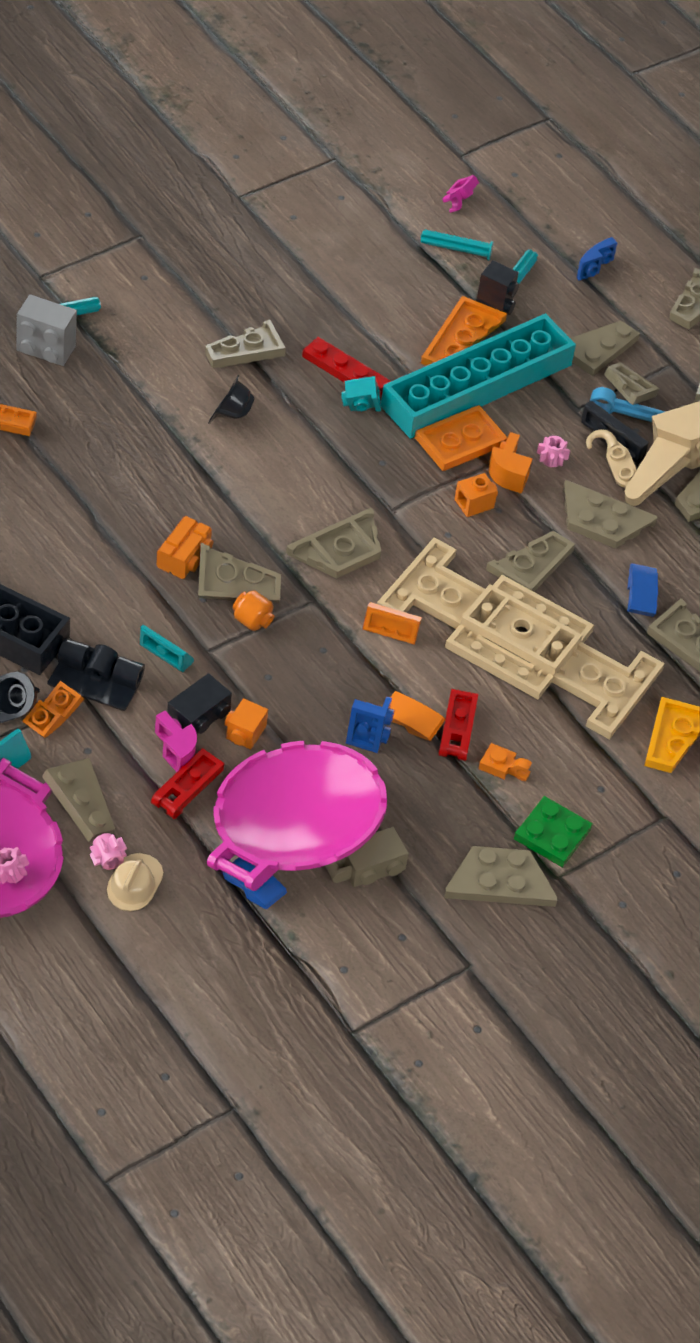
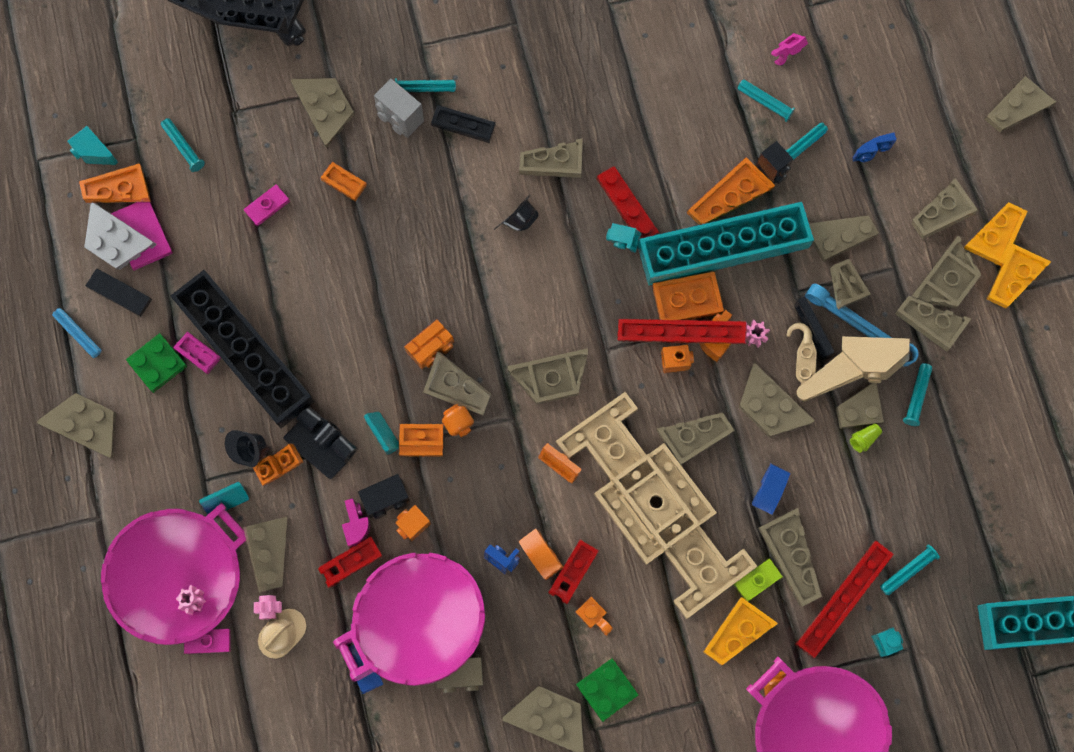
camera: 25 degrees right, 25 degrees up
(48, 912) = (212, 642): none -> dark pink plate
(124, 337) = (463, 124): none -> black tile
(217, 642) = (421, 440): none -> orange plate
(472, 460) = (682, 331): none -> red plate
(671, 680) = (758, 580): none -> lime plate

